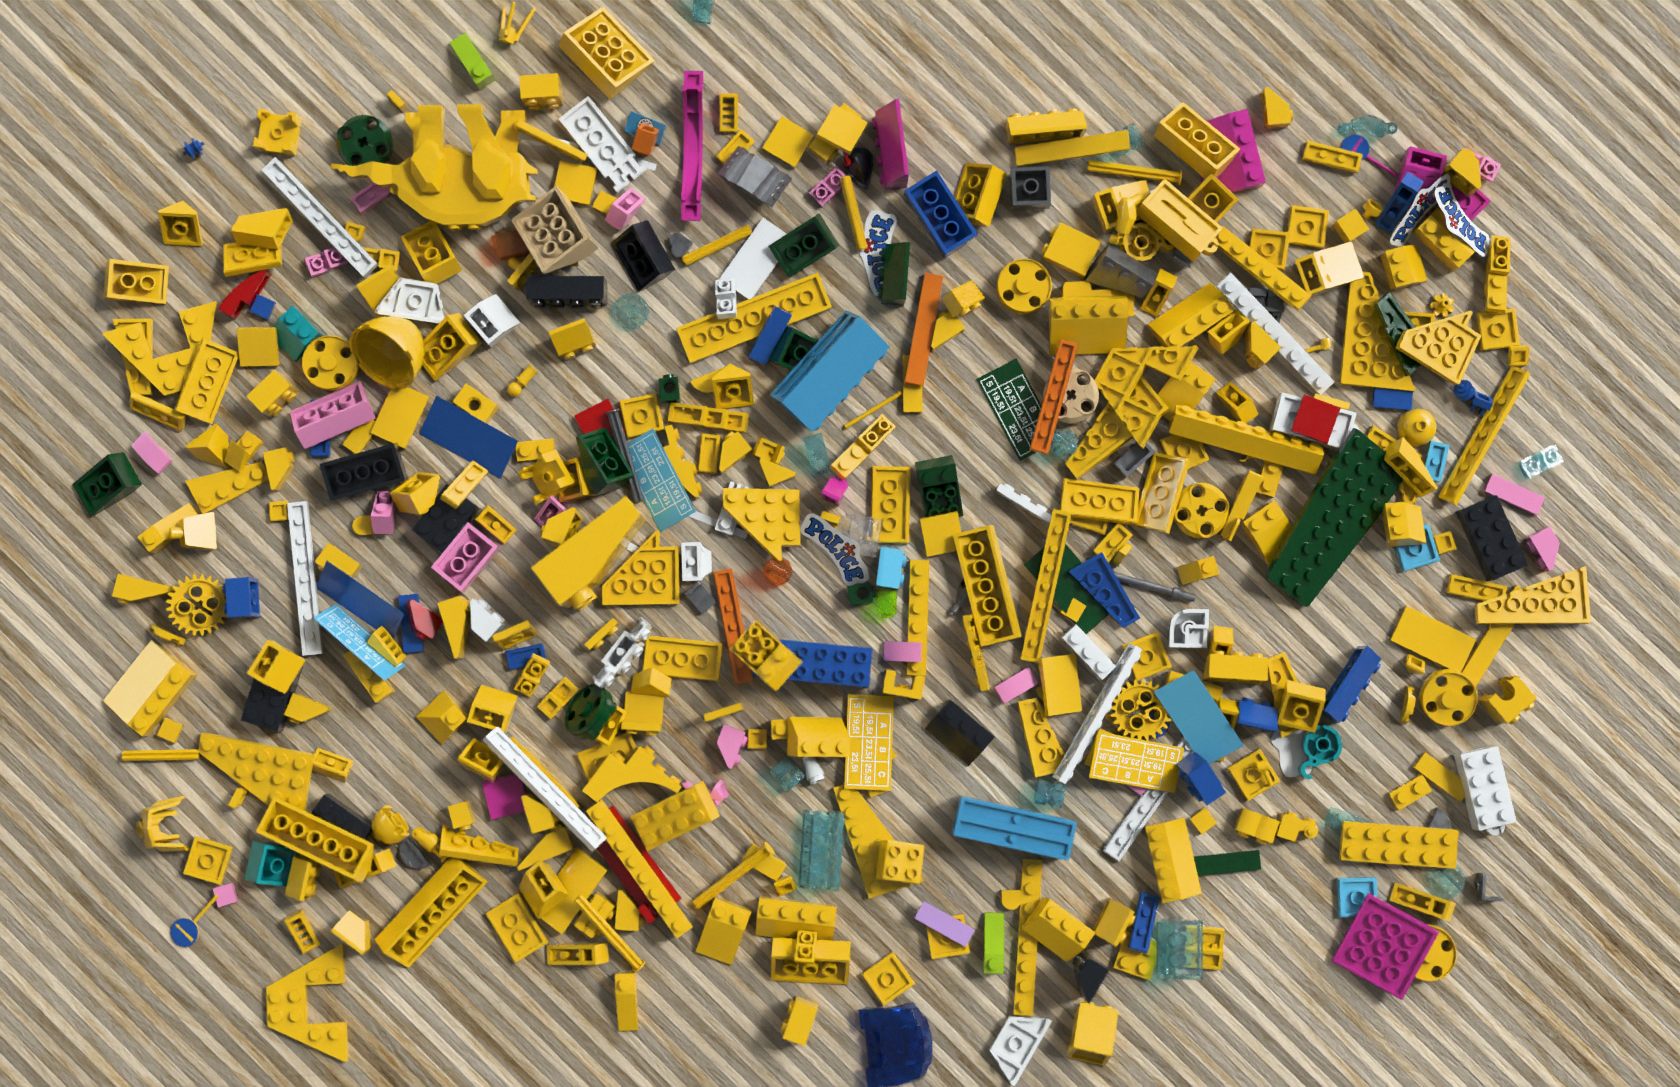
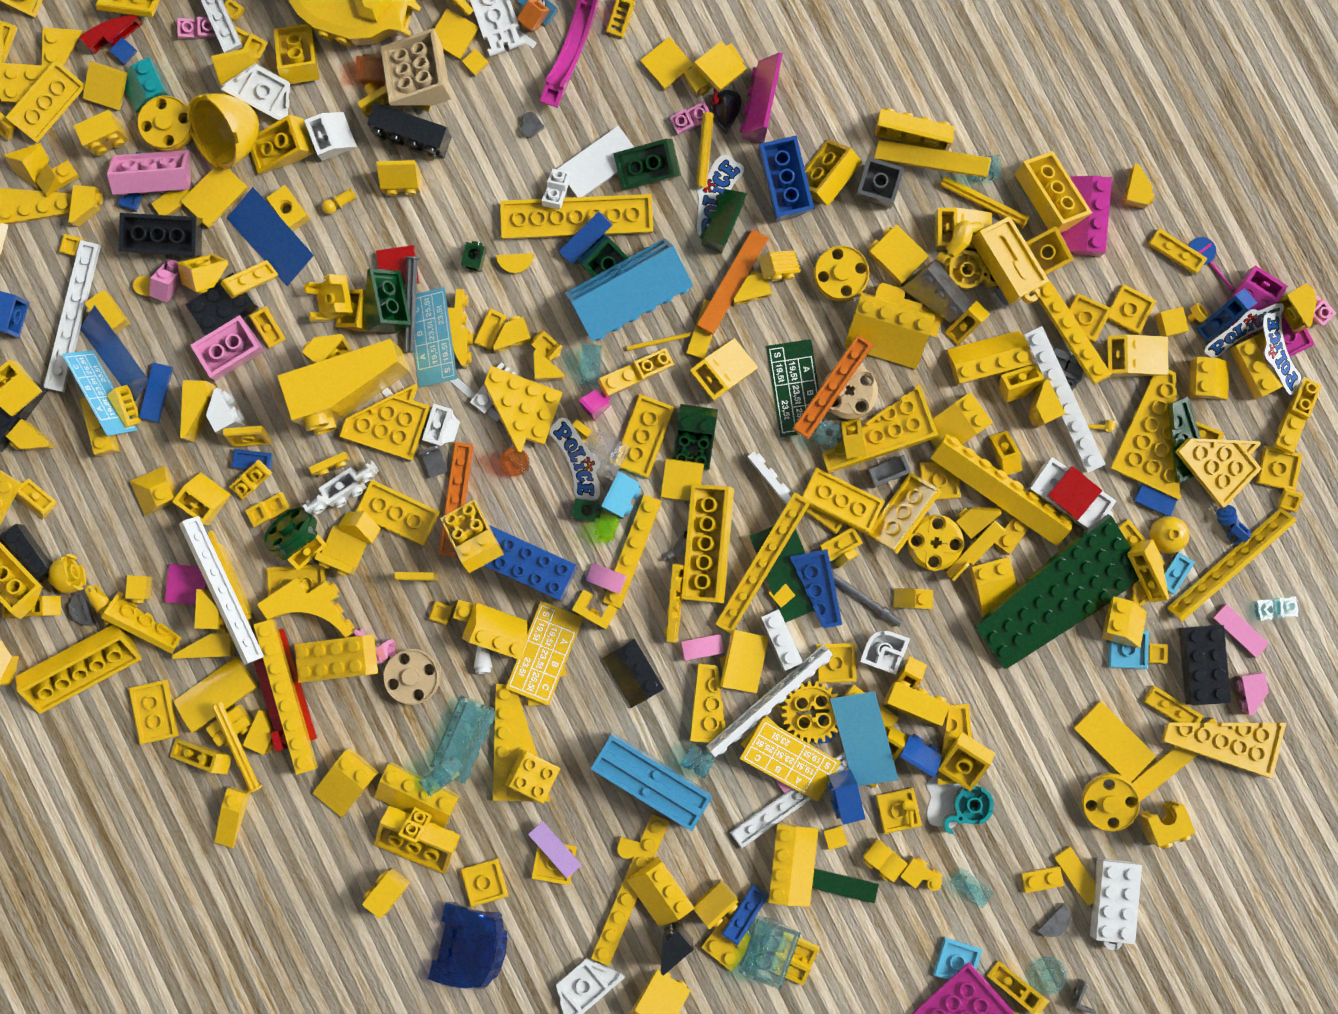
camera: 25 degrees right, 0 degrees up
(422, 620) = (166, 393): slope -> none
(481, 760) = (172, 543): yellow slope -> none
(532, 449) = (322, 267): yellow plate -> none
(542, 888) = (189, 683): yellow slope -> none
(550, 509) = (322, 328): bright pink slope -> none
(624, 209) = (491, 73): bright pink slope -> none
(631, 311) = (464, 171): clear light blue wheel -> none
(641, 415) = (439, 271): yellow tile -> none
(643, 255) = (493, 122): black slope -> none
(708, 417) = (501, 295): yellow slope -> none
(717, 245) = (565, 137): yellow axle -> none
(730, 743) = (413, 608): bright pink slope -> none
(732, 388) = (533, 275): yellow slope -> none
(733, 875) = (373, 733): yellow axle -> none
(740, 139) = (615, 53): yellow tile -> none
(751, 808) = (412, 676): none -> tan piece
(754, 177) = (622, 84): flat silver slope -> none
(769, 866) = (405, 731): yellow slope -> none
(782, 769) = (453, 649): clear light blue wheel -> none
(785, 885) = (418, 760): yellow slope -> none
(815, 890) = (442, 775): none -> clear light blue slope
(944, 416) = (723, 370): none -> yellow slope
(993, 943) = (595, 884): lime slope -> none
(1090, 439) = (853, 439): none -> yellow slope
(1121, 374) = (906, 386): yellow wing -> none
(1232, 475) = (976, 519): none -> yellow slope
(1342, 404) = (1106, 489): yellow tile -> none
(1349, 683) = (1020, 756): blue slope -> none
(1370, 124) = (1224, 232): clear light blue arm -> none
(1398, 844) = (1014, 926): yellow plate -> none
(1408, 705) = (1069, 796): yellow tile -> none
(1414, 665) = (1089, 759): yellow slope -> none
(1442, 305) = (1233, 427): yellow plant -> none

